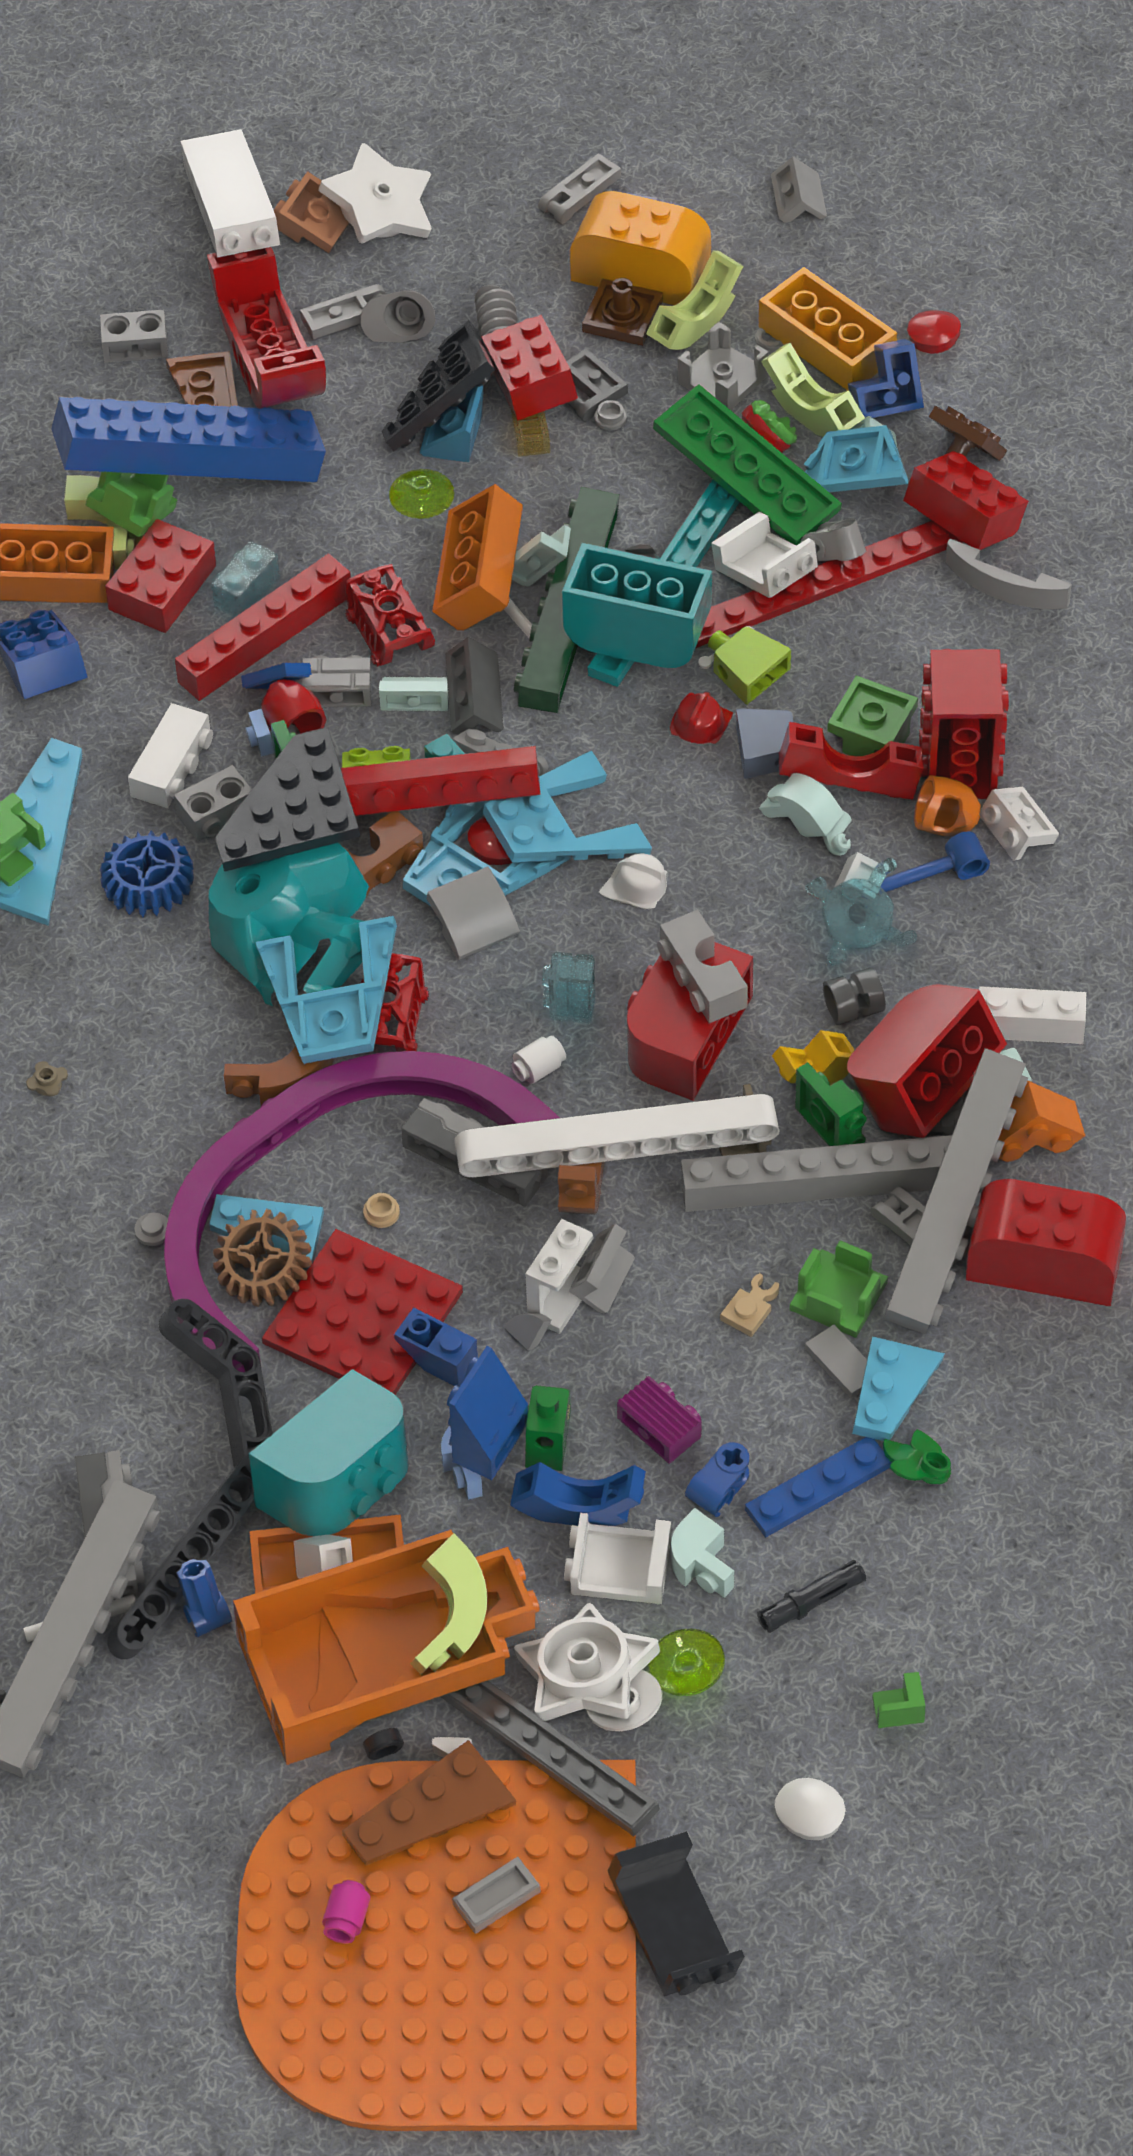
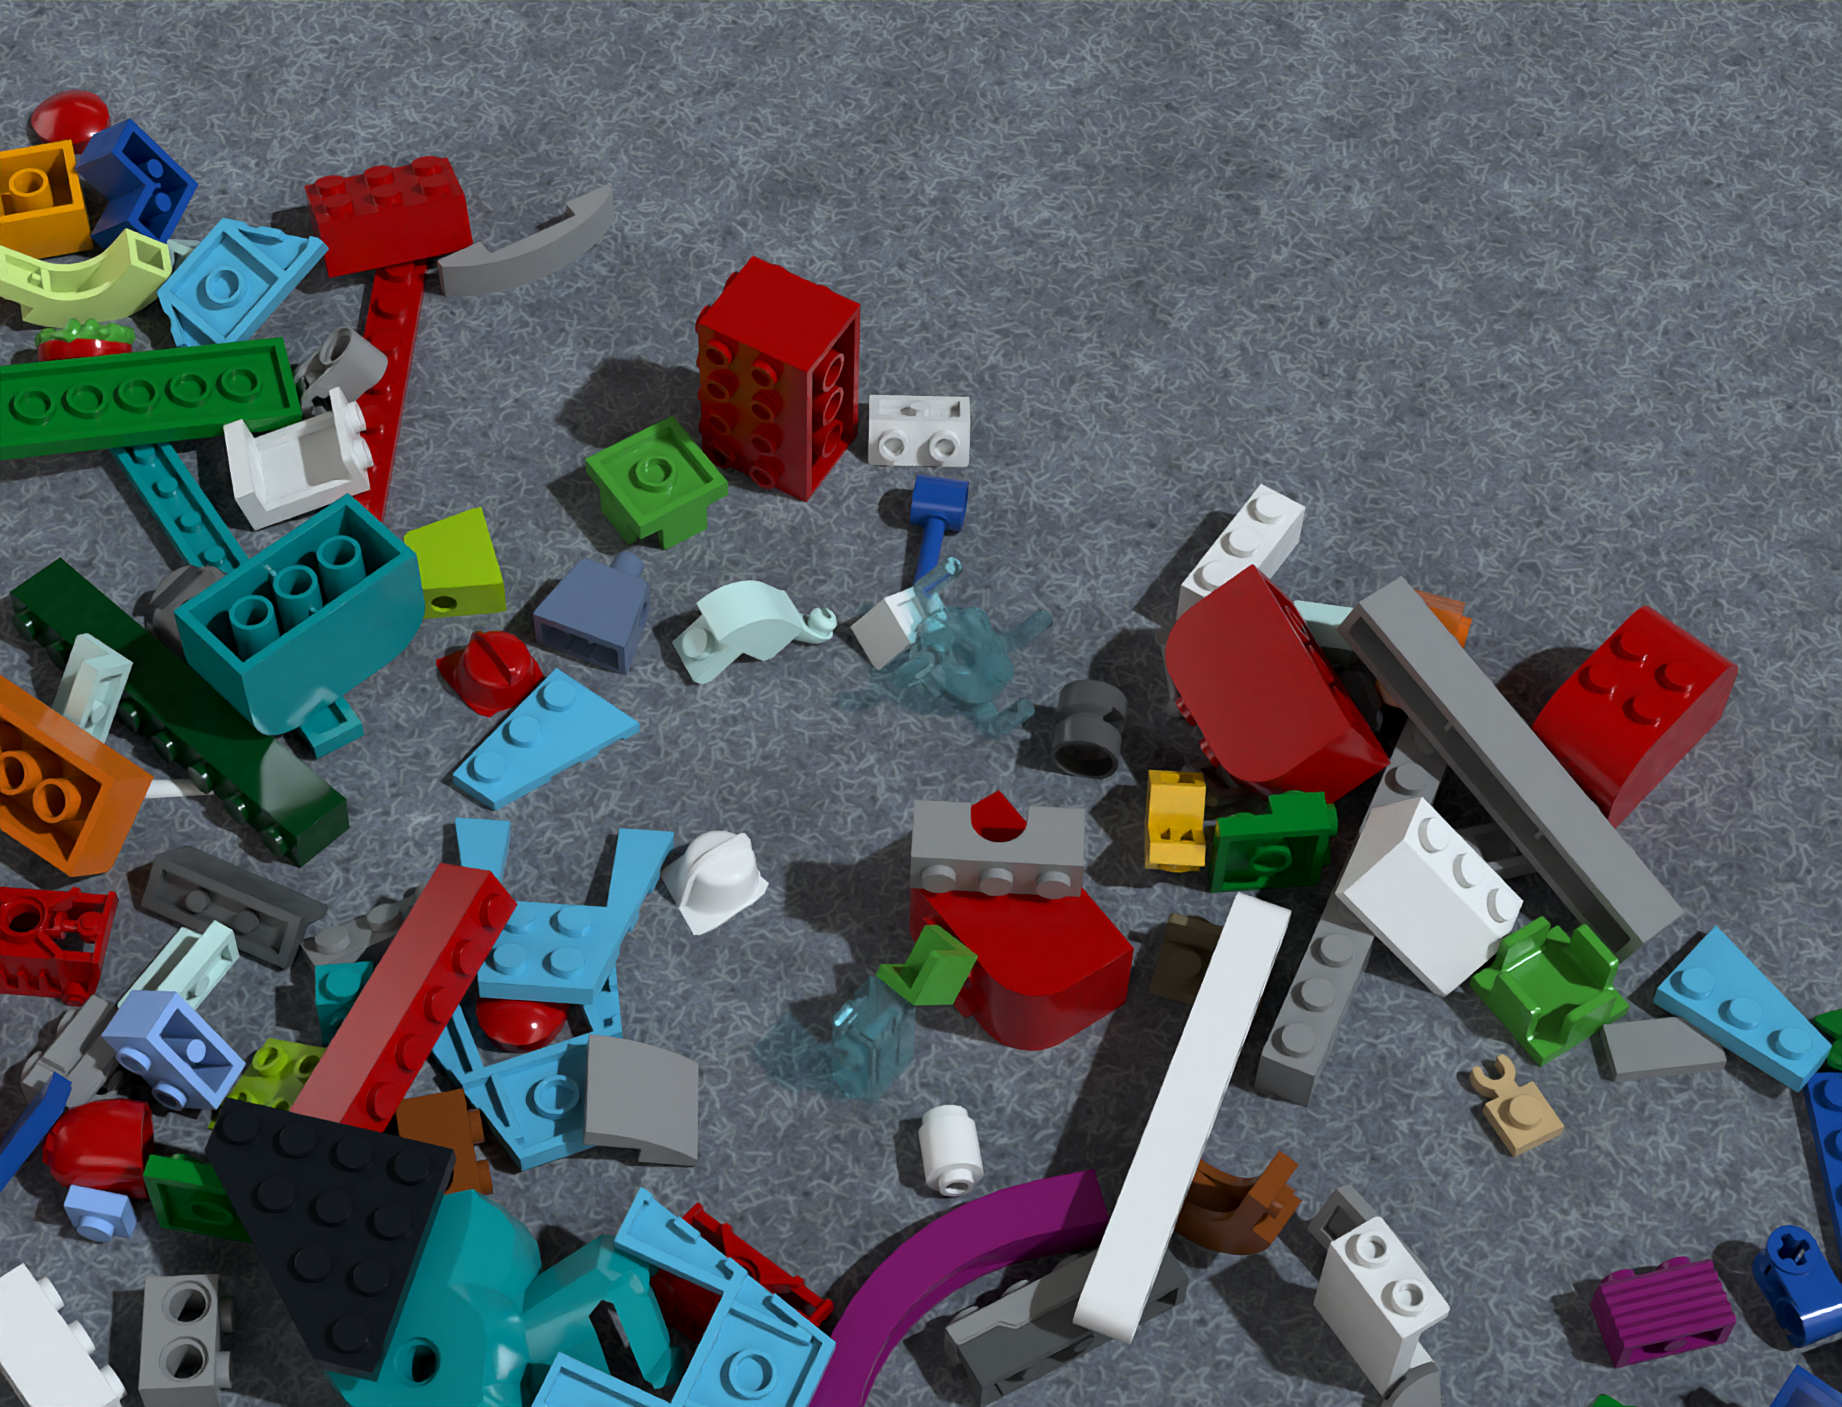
camera: 65 degrees left, 0 degrees up
(359, 705) = (173, 1050): none -> light blue brick
(613, 984) = (933, 969): none -> bright green panel
(674, 762) = (541, 738): none -> medium azure wing
(838, 1189) = (1427, 894): none -> white slope
(889, 771) = (754, 509): red arch -> none
(946, 807) = (856, 482): orange piece -> none
(967, 433) = (285, 165): reddish brown plate -> none

